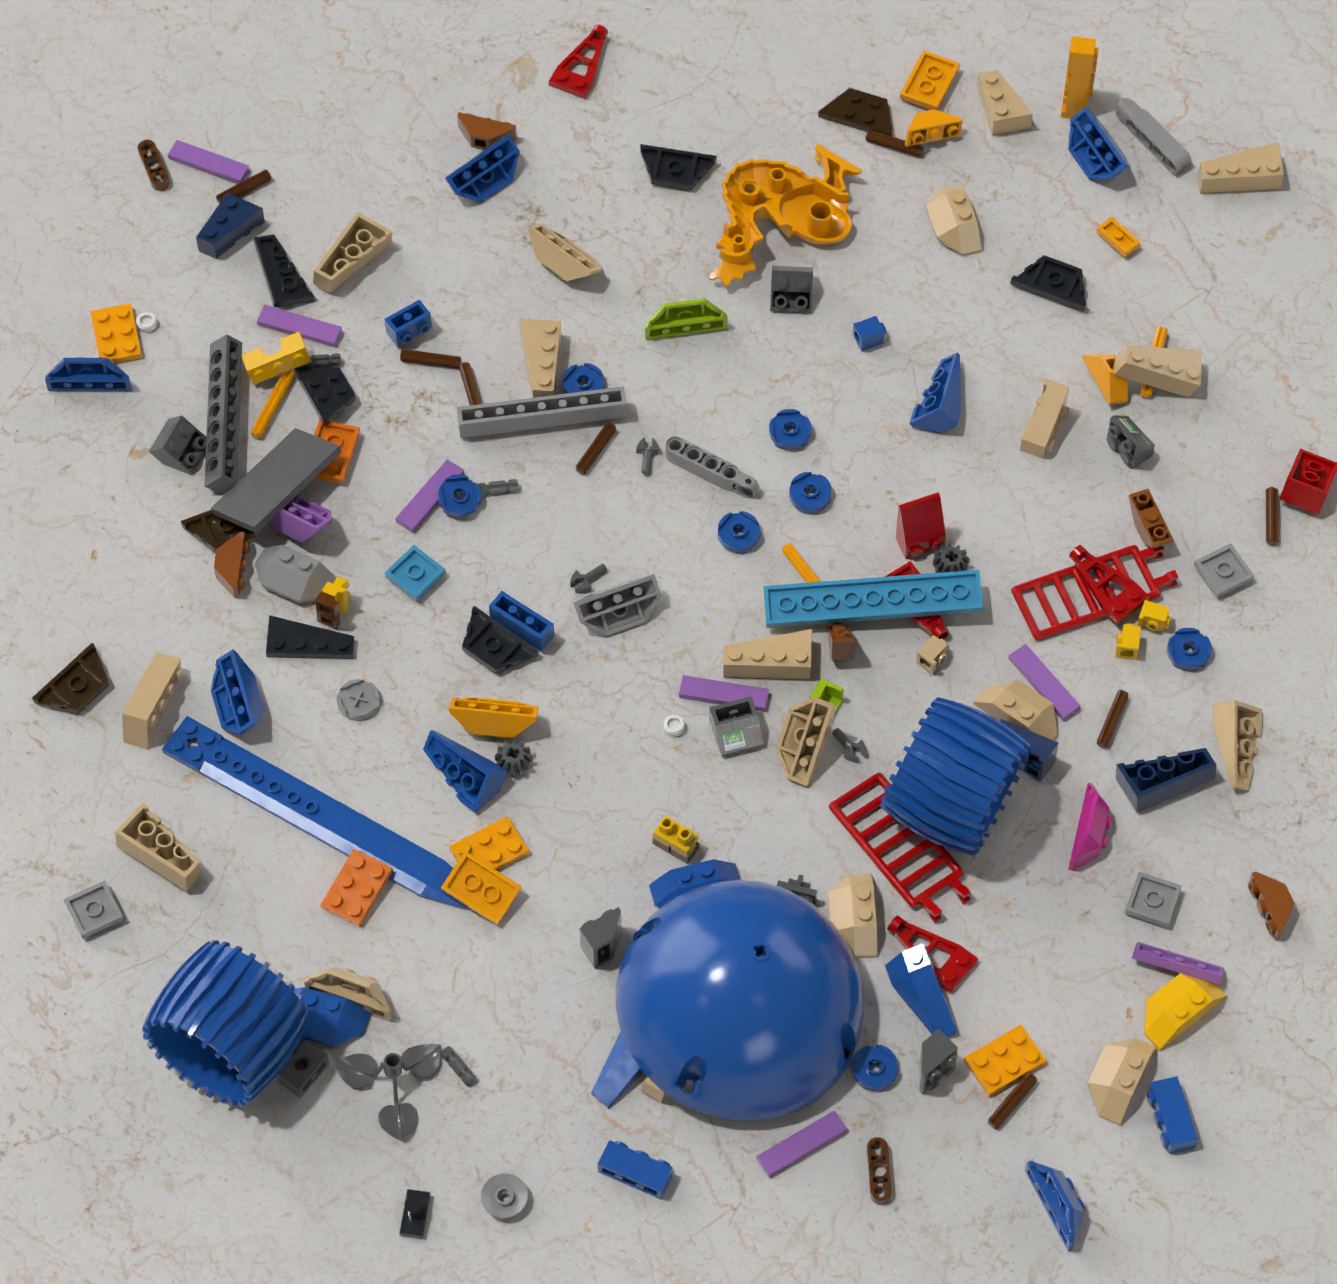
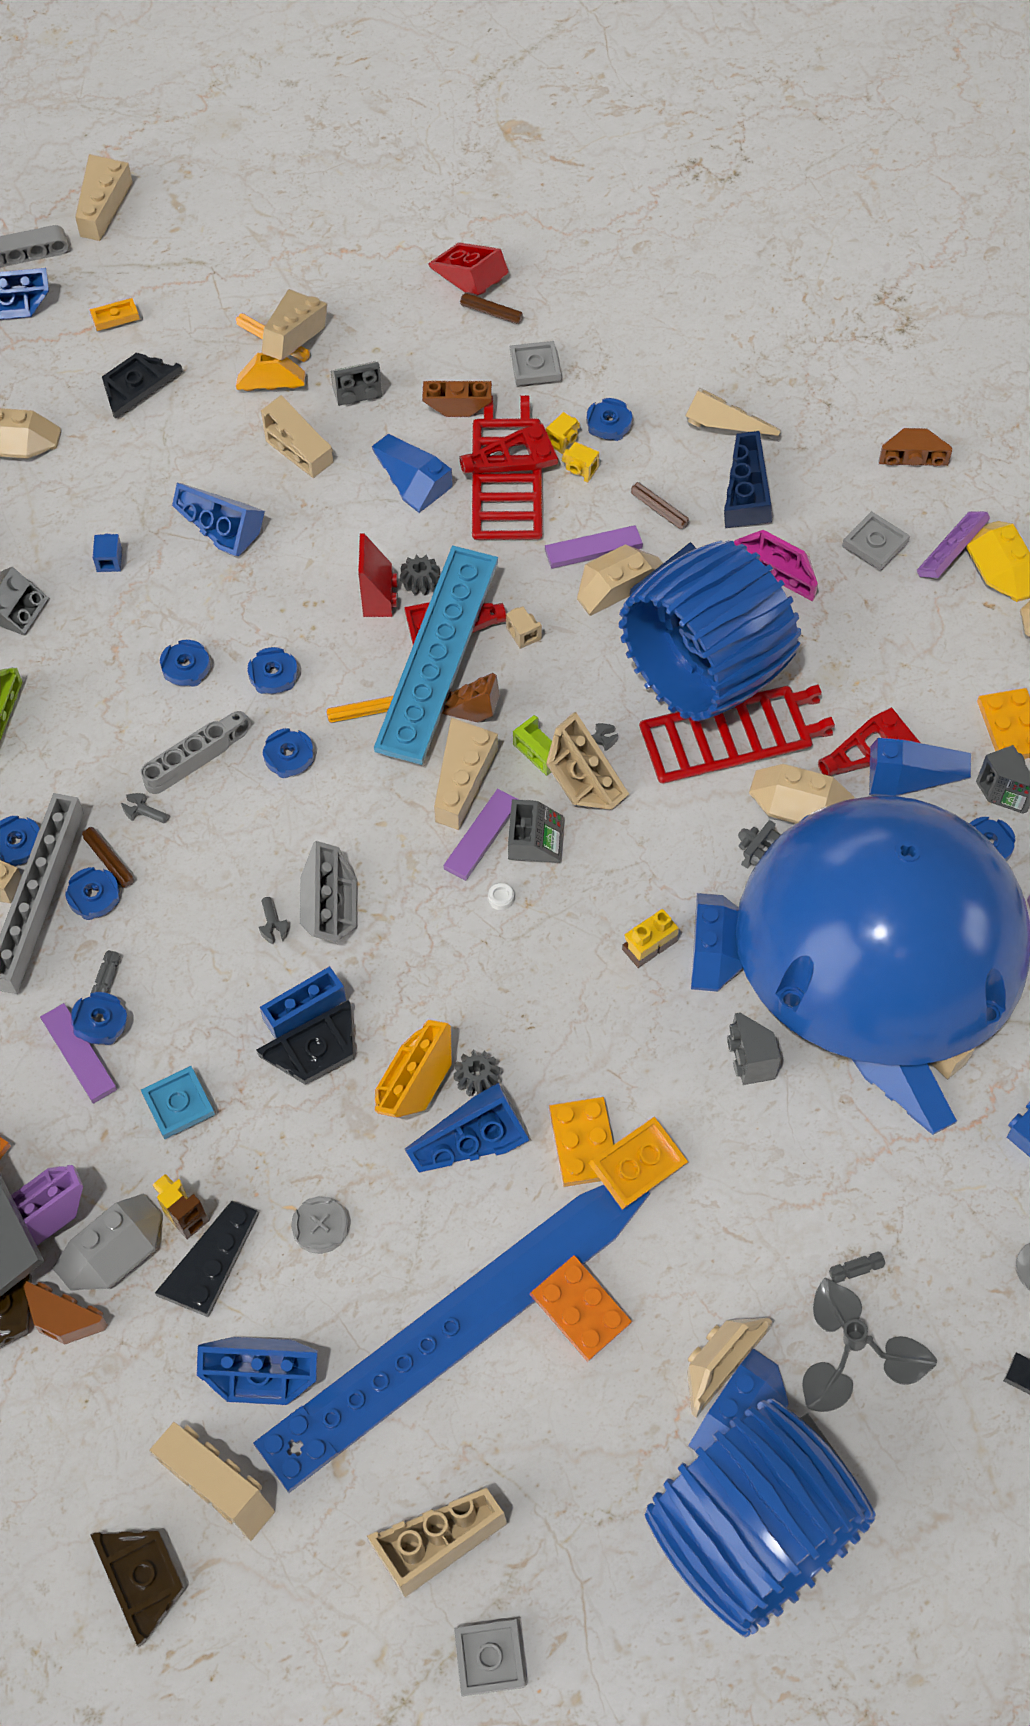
camera: 70 degrees left, 0 degrees up
(560, 461) = (94, 906): none -> blue plate
(1055, 522) = (415, 472): none -> blue wedge

